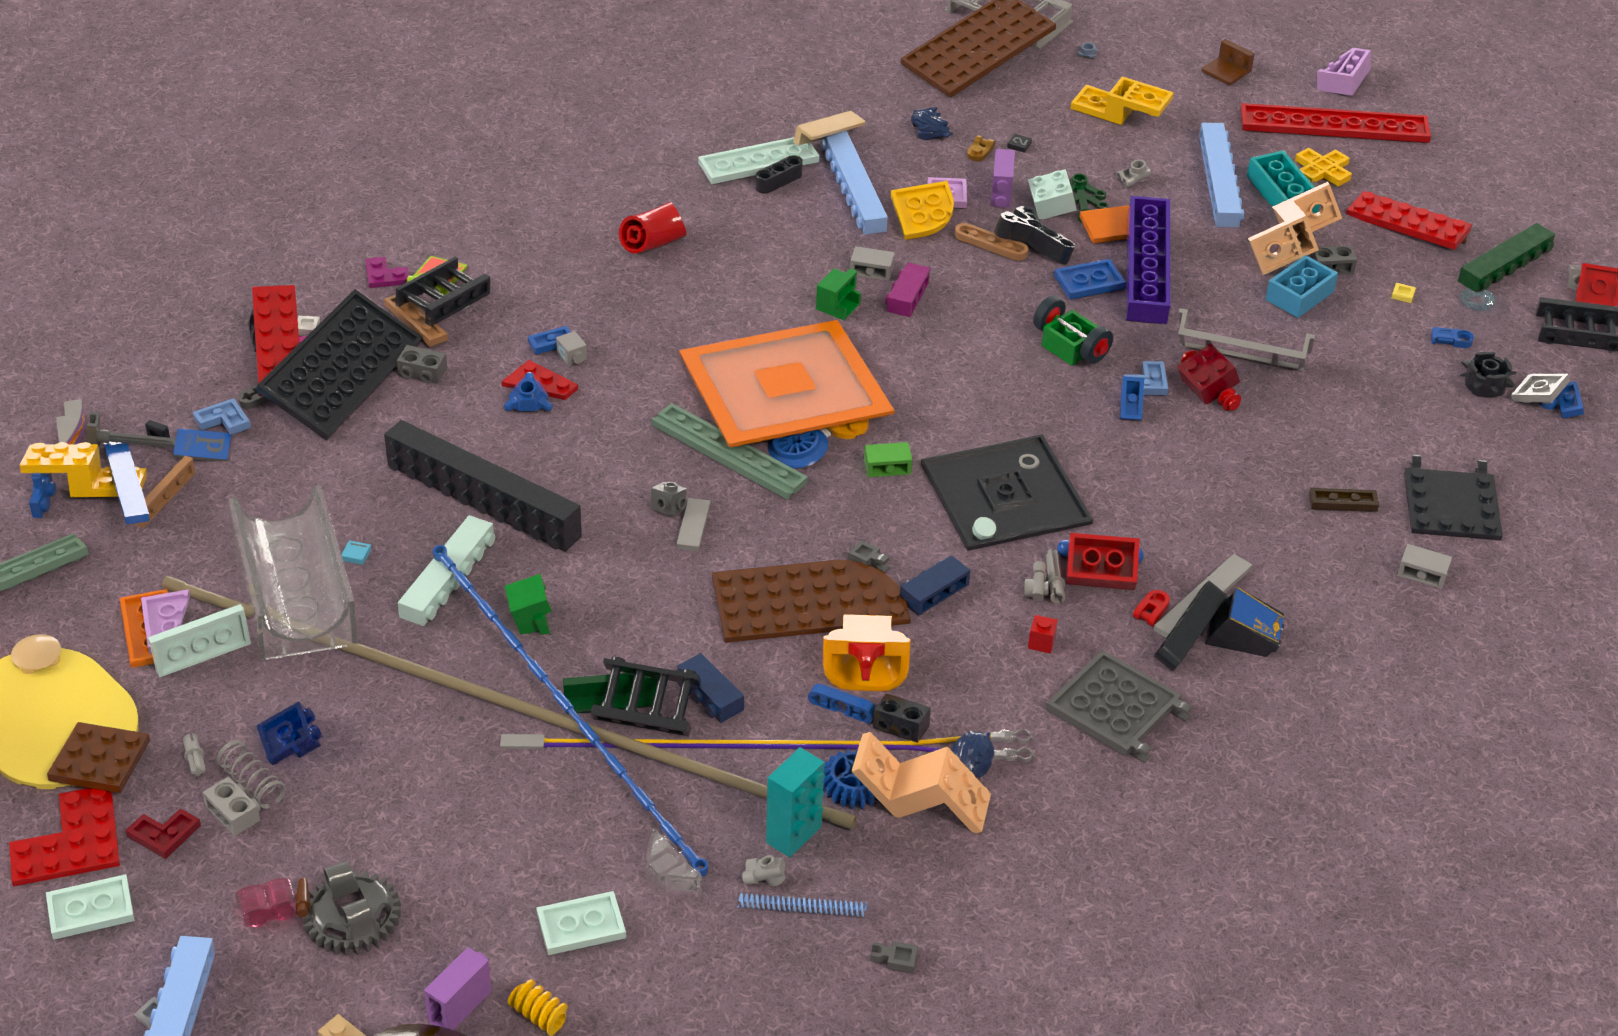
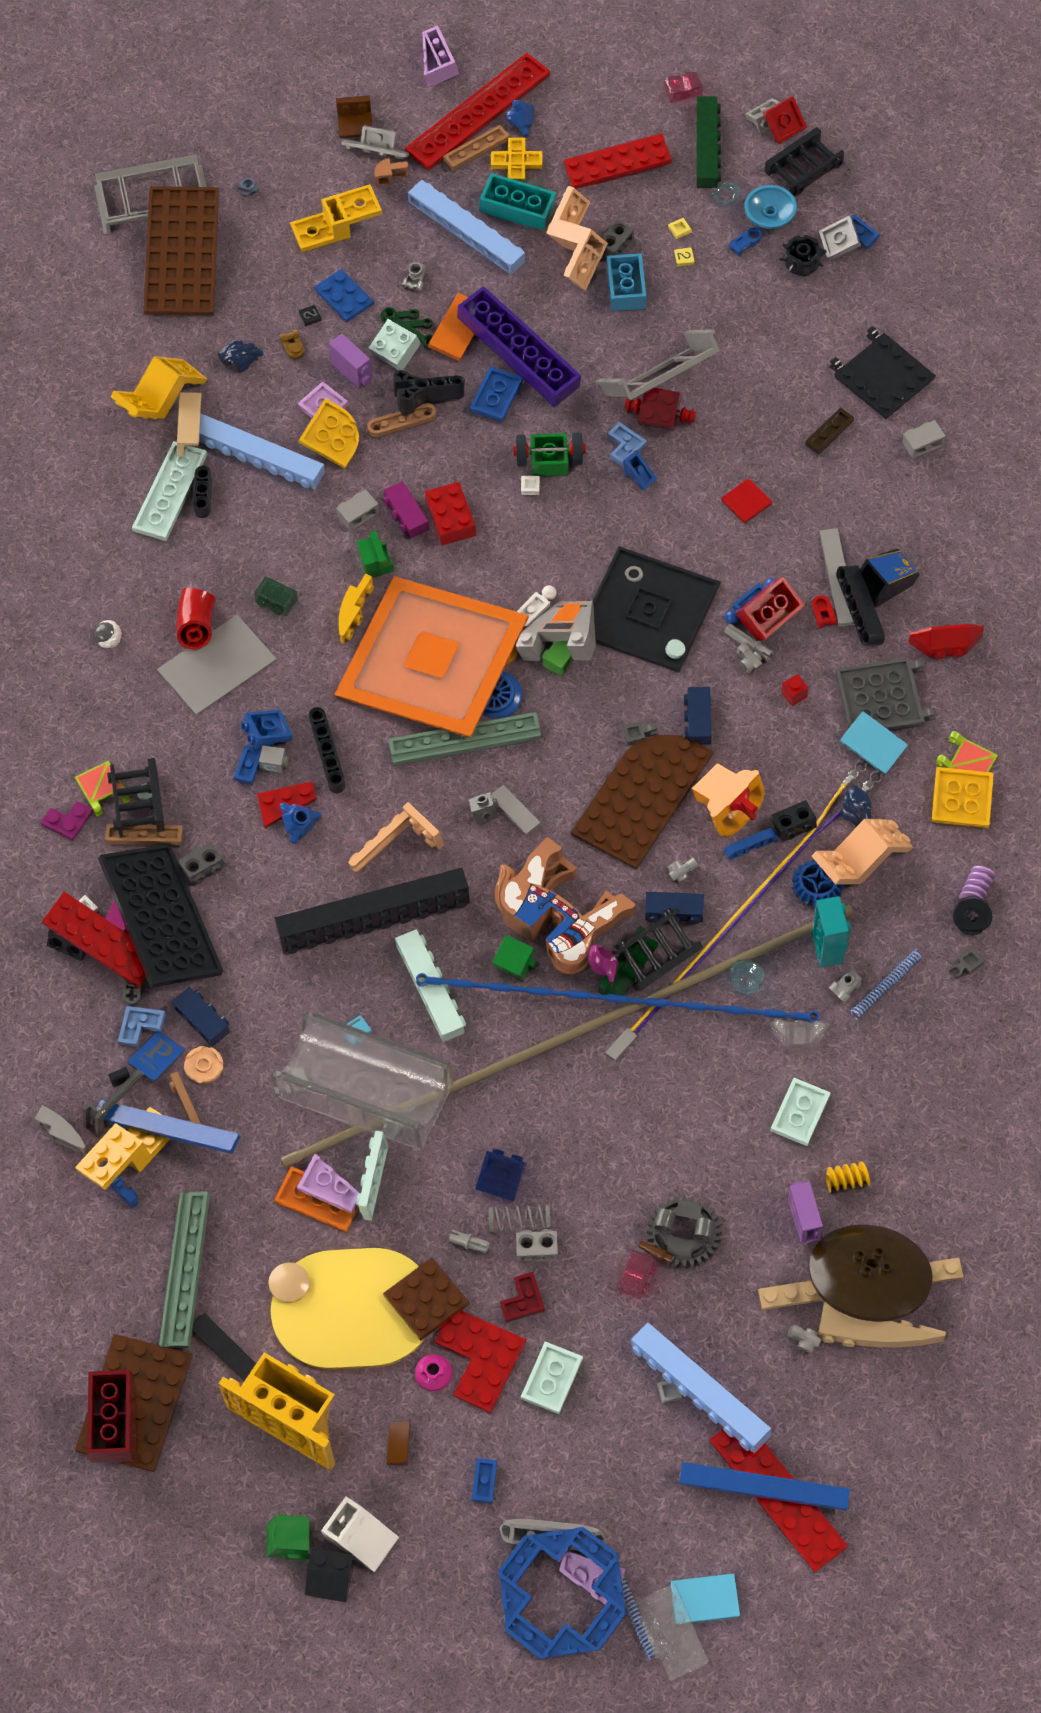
camera: 45 degrees left, 20 degrees up
(24, 821) = (437, 1381): none -> dark pink piece
(217, 484) = (203, 1065): none -> light nougat tile
(267, 447) = (201, 1016): none -> dark blue brick
(585, 199) = (107, 634): none -> hair
(585, 658) = (603, 961): none -> magenta piece
(594, 454) = (389, 833): none -> light nougat bracket
(596, 326) = (265, 728): none -> blue plate
(597, 583) = (531, 906): none -> nougat animal
(617, 374) = (323, 743): none -> black beam
(629, 274) = (219, 667): none -> light grey piece
(691, 778) = (748, 971): none -> clear light blue helmet
(731, 264) = (275, 596): none -> clear green brick
(756, 668) = (679, 870): none -> light grey plate
(768, 312) = (351, 606): none -> yellow slope
(838, 95) = (158, 388): none -> yellow bracket
(903, 443) = (562, 622): none -> light grey wedge
(915, 418) = (537, 604): none -> white plate
(937, 314) = (450, 513): none -> red brick
(966, 924) = (965, 906): none -> black plate
(991, 904) = (977, 882): none -> lavender piece
(1029, 347) = (530, 485): none -> white plate
(1056, 725) = (873, 743): none -> medium azure tile
(1063, 150) = (344, 295): none -> blue plate
(1080, 833) = (962, 797): none -> yellow plate
(1131, 817) = (968, 756): none -> flag
(1198, 489) = (746, 501): none -> red tile
(1207, 106) = (385, 172): none -> nougat brick
(1227, 87) = (377, 140): none -> light grey bracket
(1239, 712) = (946, 640): none -> red wedge
(1300, 140) = (476, 147): none -> medium nougat plate
(1366, 143) = (521, 116): none -> blue rock
(1380, 311) = (684, 257): none -> light yellow tile
(1502, 326) = (770, 200): none -> dark azure dish
(1531, 211) = (683, 87): none -> clear pink brick

